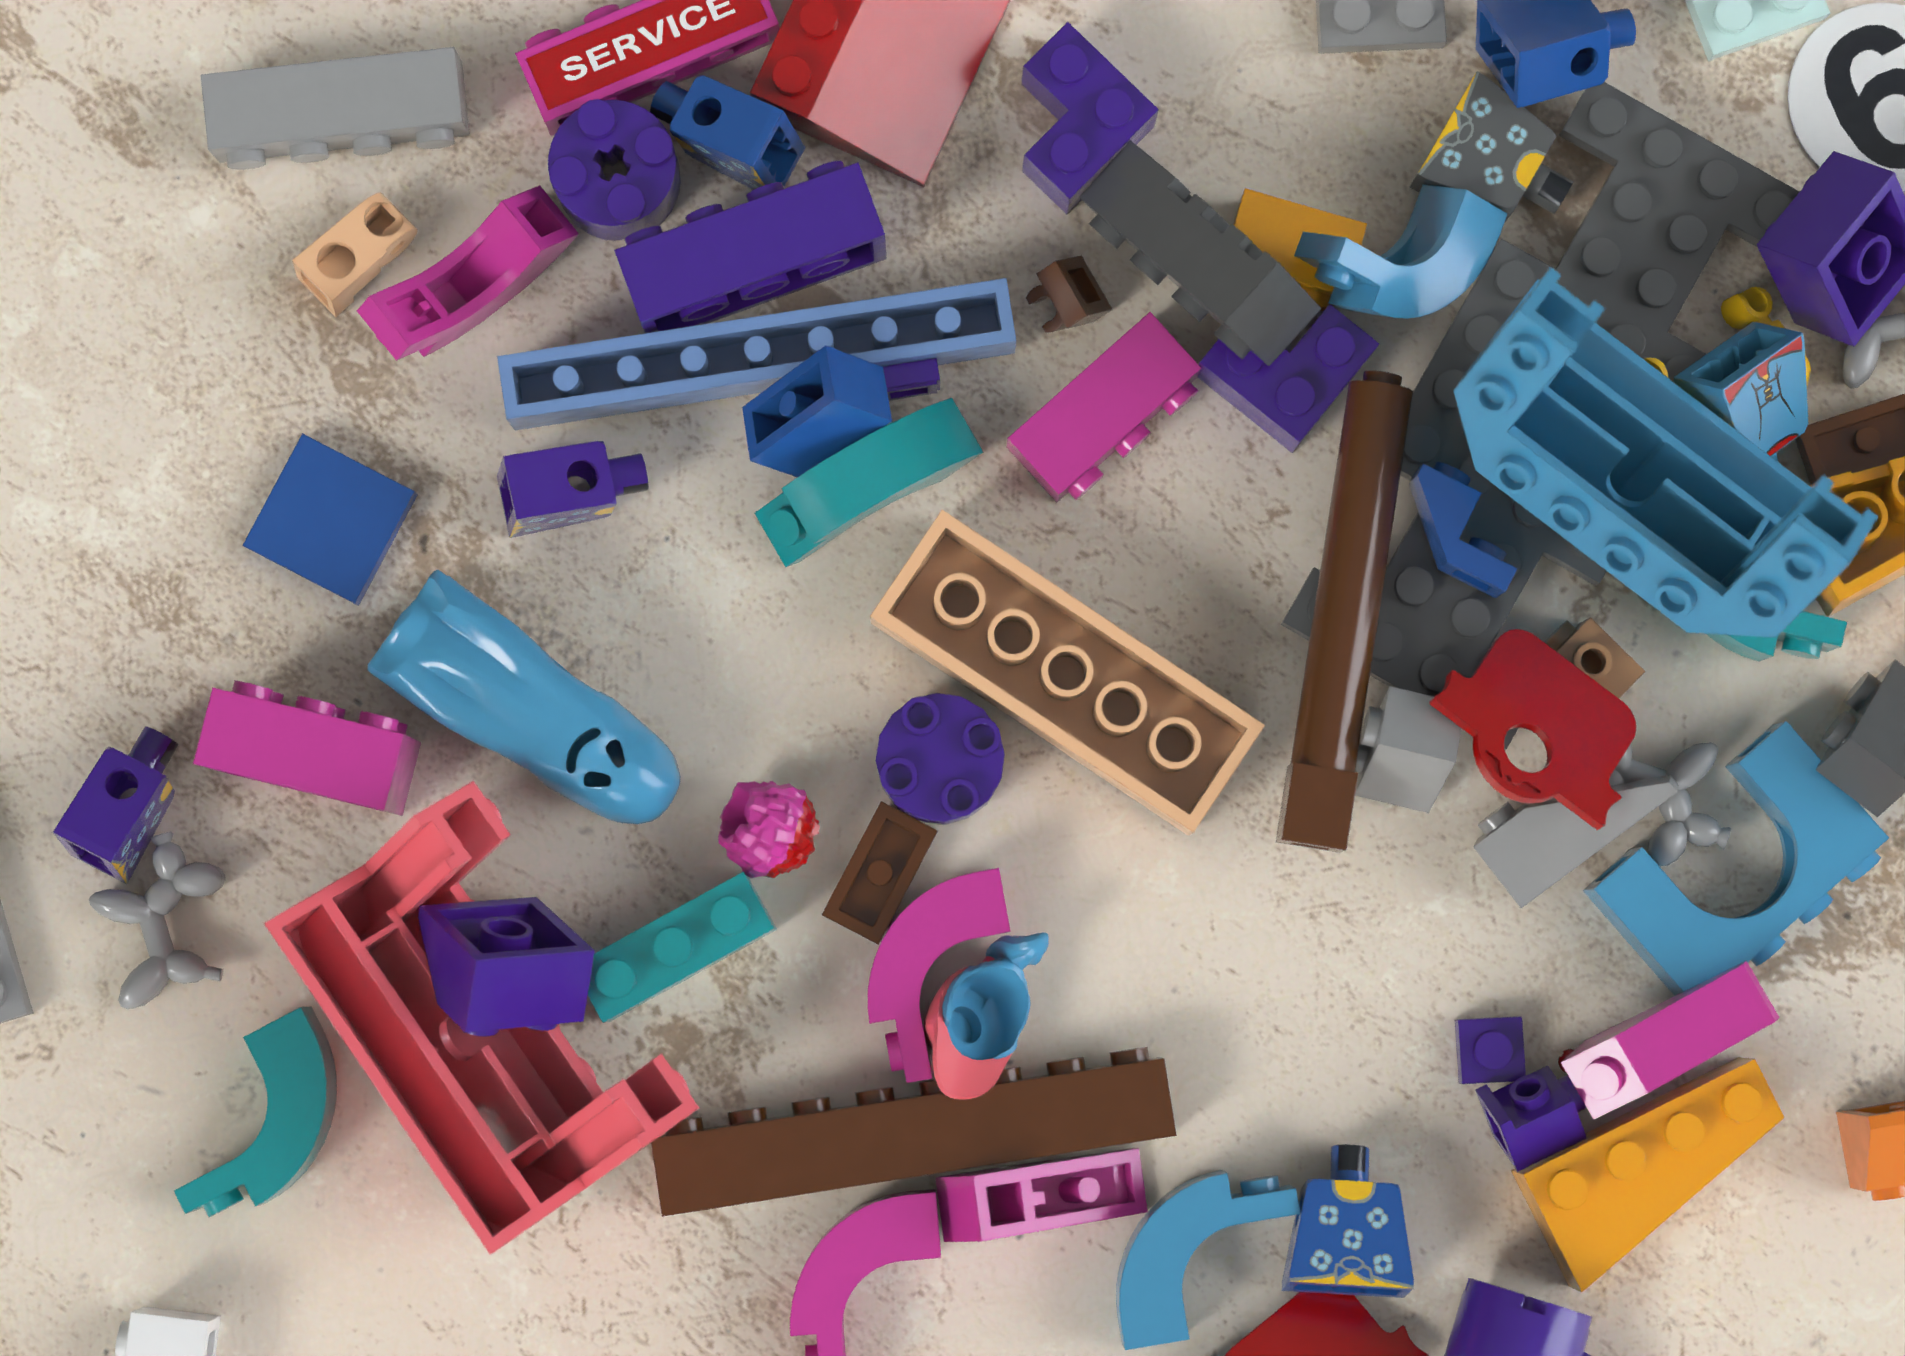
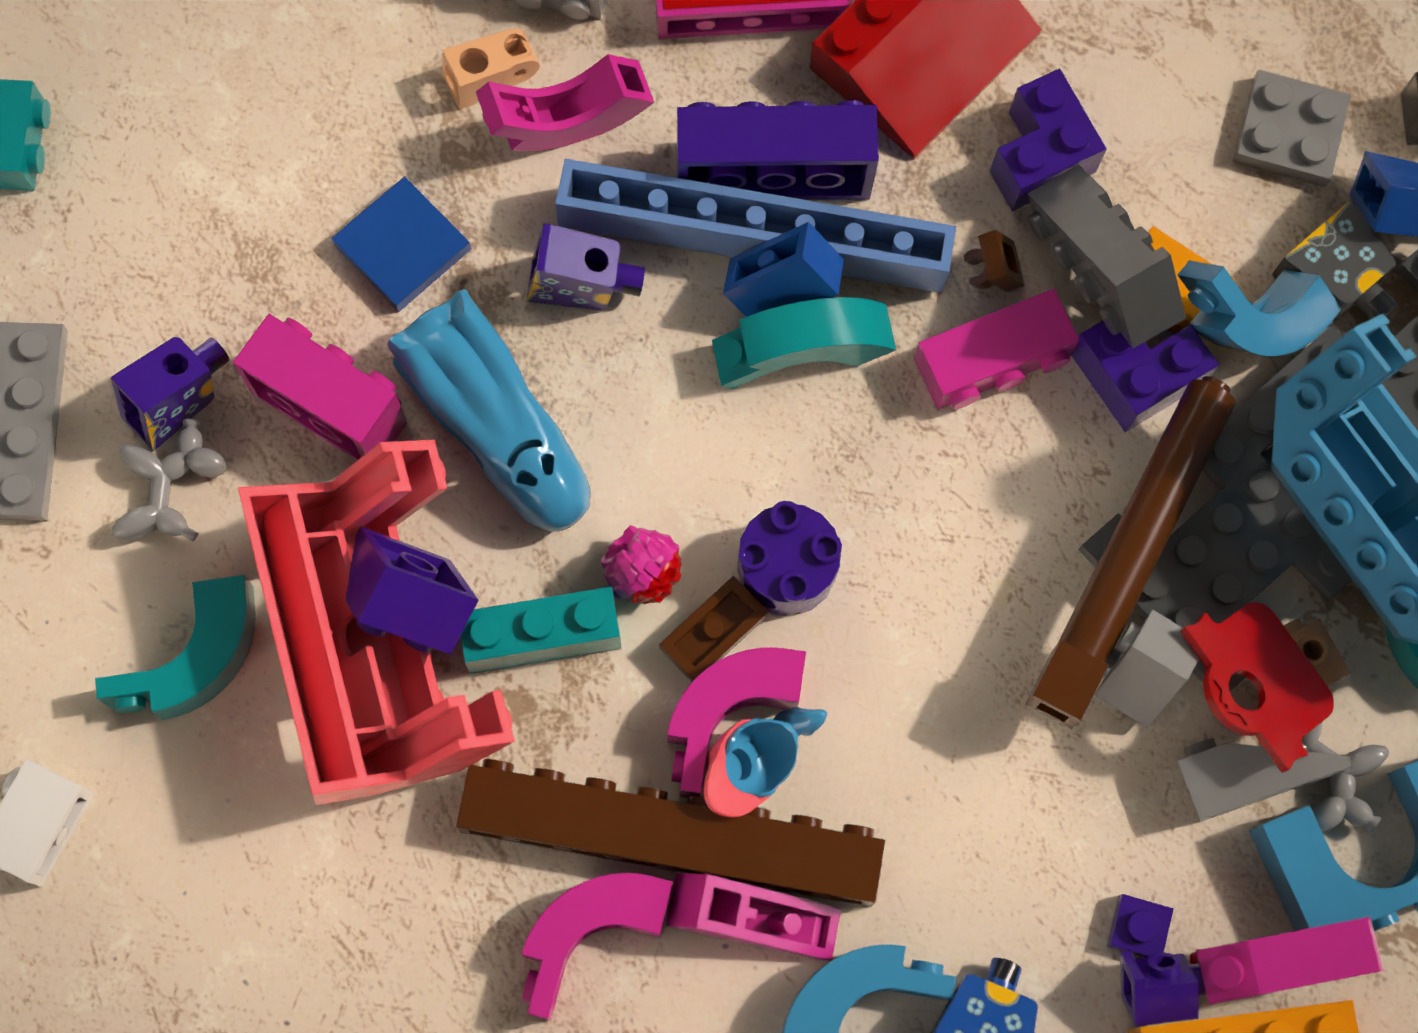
camera: 20 degrees right, 10 degrees down
(602, 136) = (695, 61): dark purple brick -> none
(730, 131) = (788, 63): blue torso -> none
(912, 379) = (861, 281): dark purple tile -> none
(1066, 673) = (906, 527): light nougat brick -> none
(1444, 509) = (1233, 491): blue slope -> none

